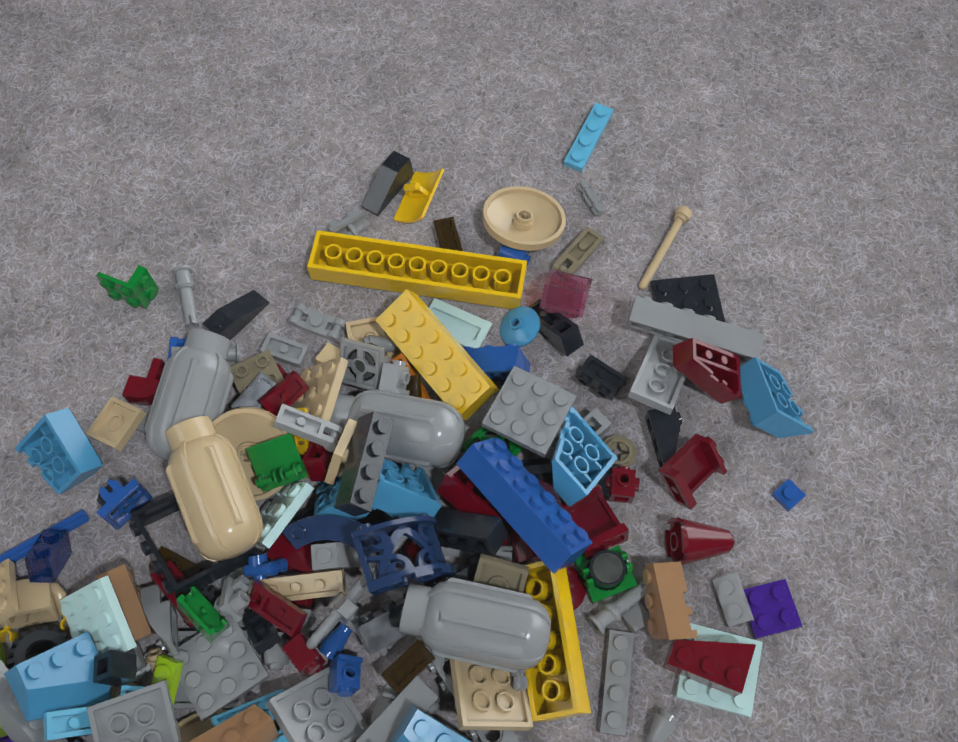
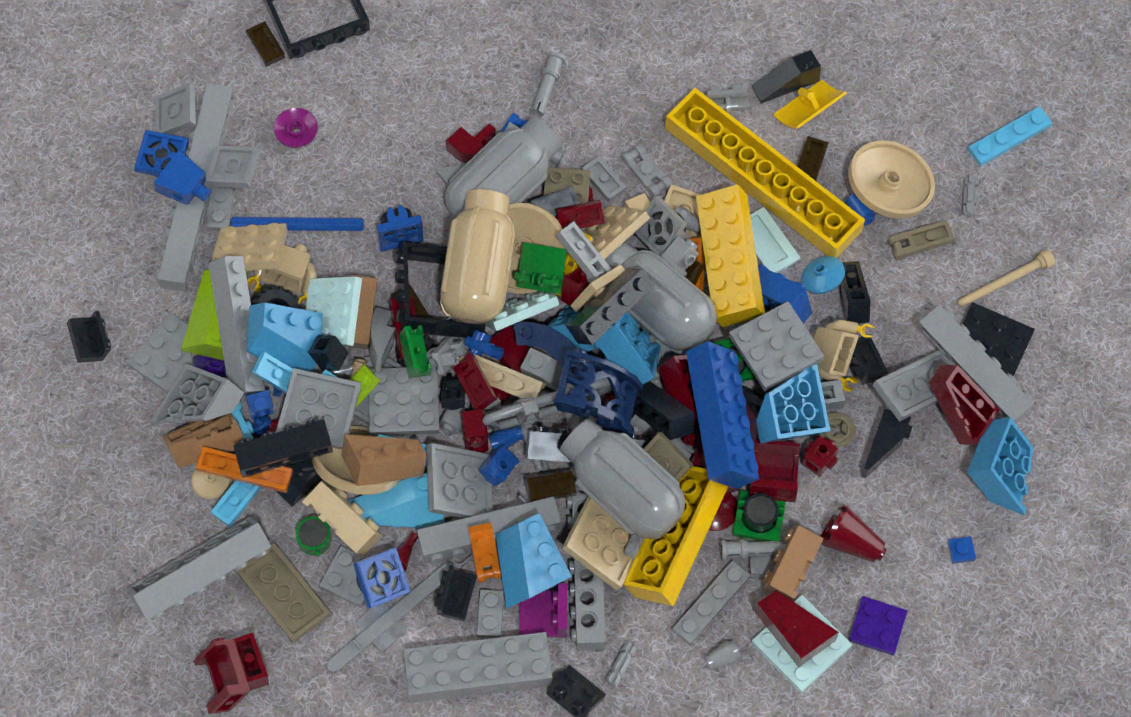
camera: 30 degrees right, 0 degrees up
(48, 556) = (319, 239): clear blue brick -> none
(60, 451) = (370, 159): dark azure wedge -> none
(116, 423) = (427, 162): tan plate -> none
(136, 292) = (504, 57): green bracket -> none
(235, 315) = (580, 124): black slope -> none
(565, 293) = (881, 268): clear pink brick -> none
(575, 376) = (837, 345): none -> tan torso
(691, 468) = (888, 476): dark red panel -> none
(733, 600) = (850, 599): light grey plate -> none

